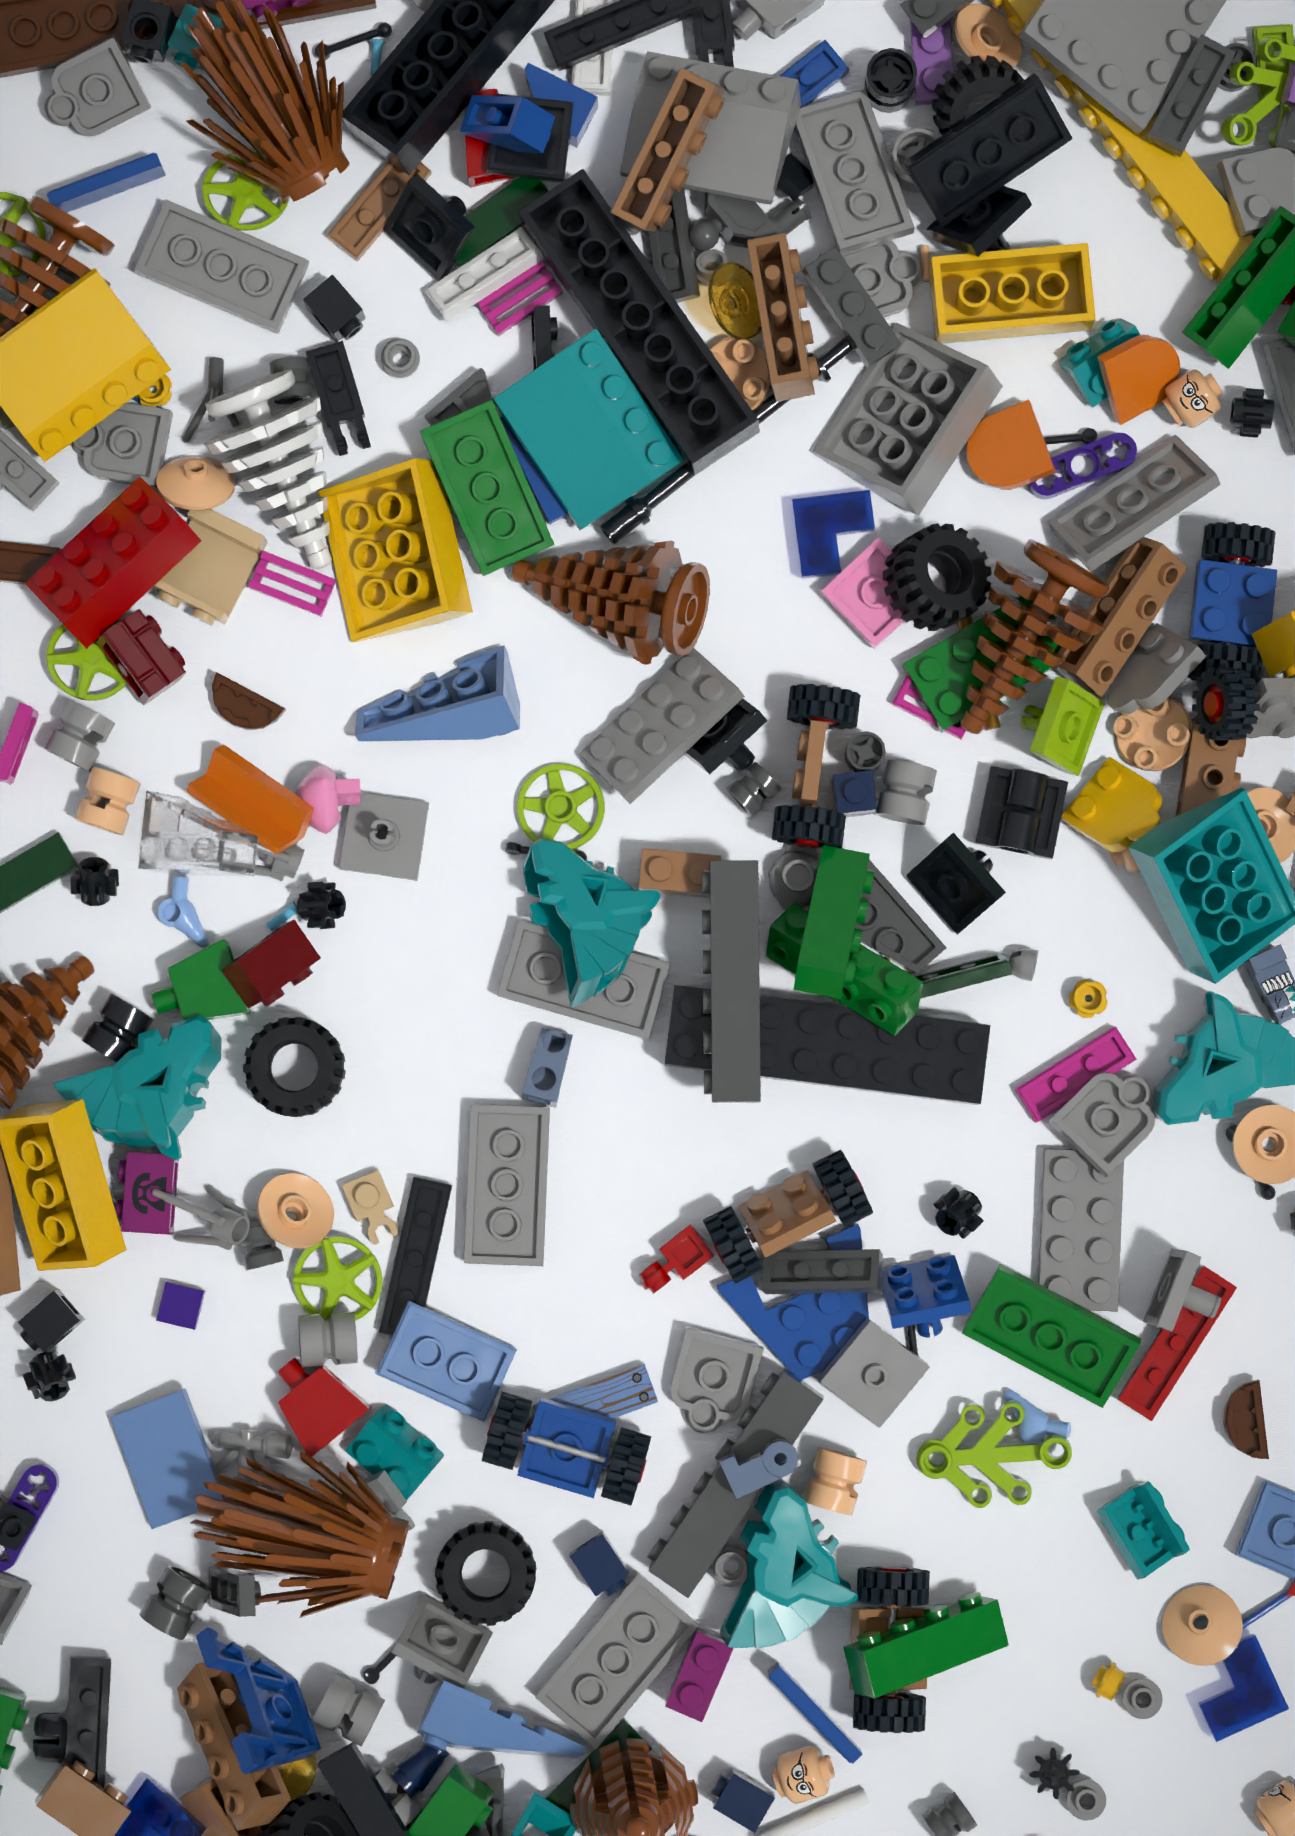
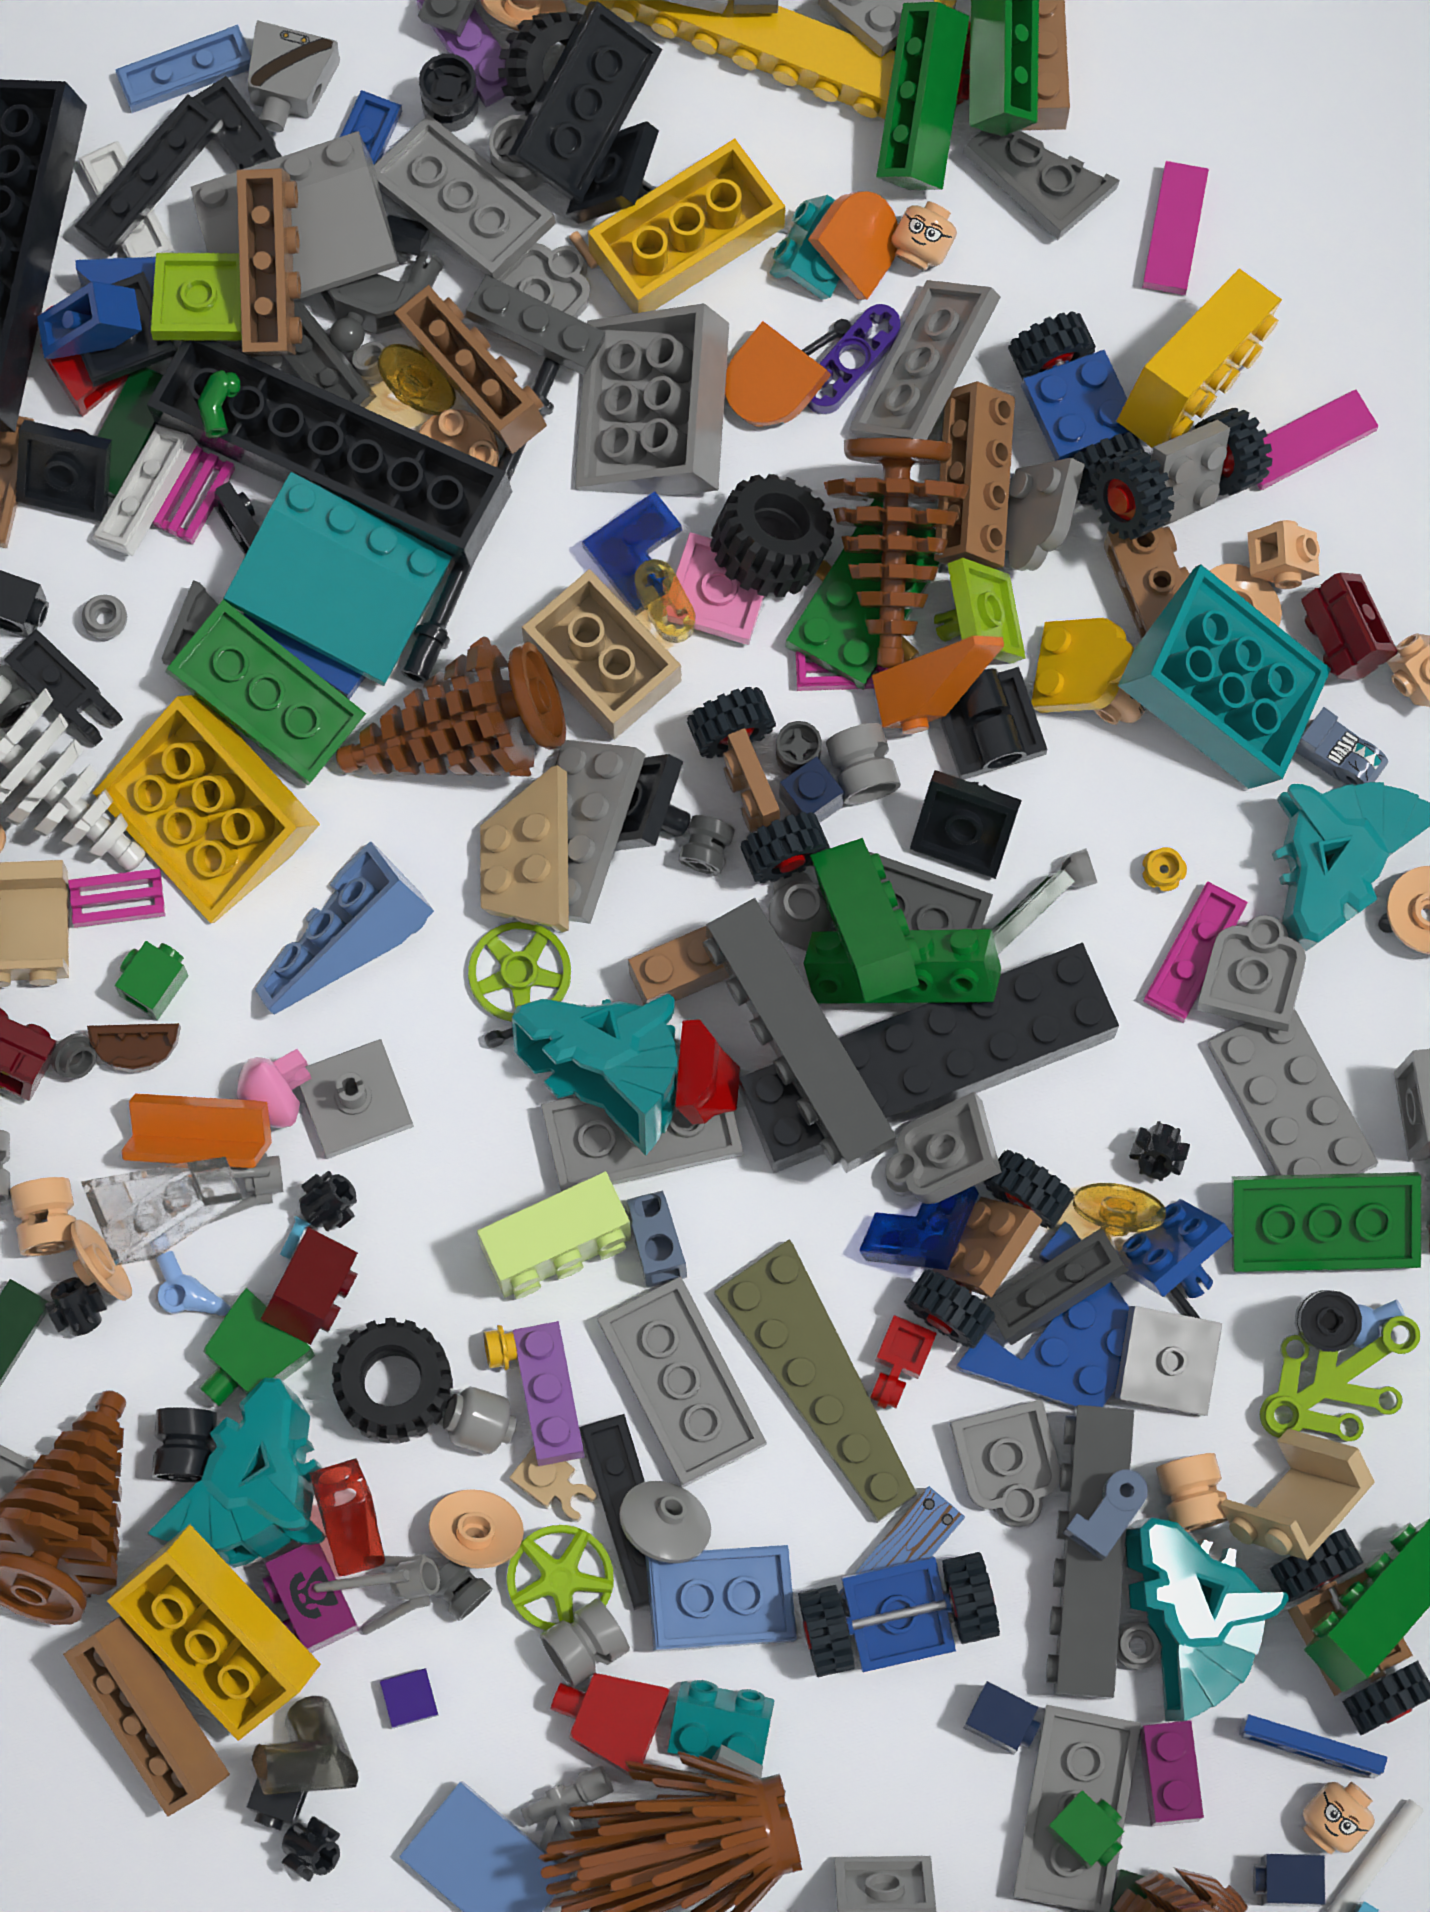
camera: 30 degrees left, 10 degrees down
(82, 1319) = (315, 1756): none -> clear smoke brick
(124, 859) = (96, 1262): none -> light nougat dish
(194, 690) = (73, 1056): none -> dark grey plate
(203, 1157) = (350, 1529): none -> clear red piece
(283, 661) = (151, 978): none -> green brick
(342, 1131) = (479, 1420): none -> light grey head
(387, 1085) = (499, 1348): none -> yellow plate
(404, 1140) = (548, 1393): none -> medium lavender plate
(422, 1288) = (665, 1522): none -> light grey dish
(471, 1028) = (555, 1236): none -> yellowish green brick
(475, 1607) = (919, 1763): black tyre -> none
(566, 237) = (211, 401): none -> green arm
(601, 146) = (197, 297): none -> lime tile
(609, 1203) = (801, 1349): none -> olive wing
(613, 725) = (528, 855): none -> tan wing
(613, 1683) = (1088, 1830): none -> green brick
(650, 969) = (705, 1075): none -> red slope
(752, 1181) = (921, 1239): none -> clear blue plate
(756, 597) = (602, 654): none -> tan brick
(796, 1124) = (944, 1152): none -> light grey plate
(837, 582) = (673, 596): none -> clear yellow beam
(902, 1239) = (1119, 1208): none -> clear yellow dish
(910, 1536) = (1309, 1499): none -> tan panel
(989, 762) = (931, 683): none -> orange slope
(1005, 1414) = (1328, 1320): none -> black wheel
(1154, 736) = (1076, 576): light nougat dish -> none
(1251, 412) = (989, 218): black gear -> none

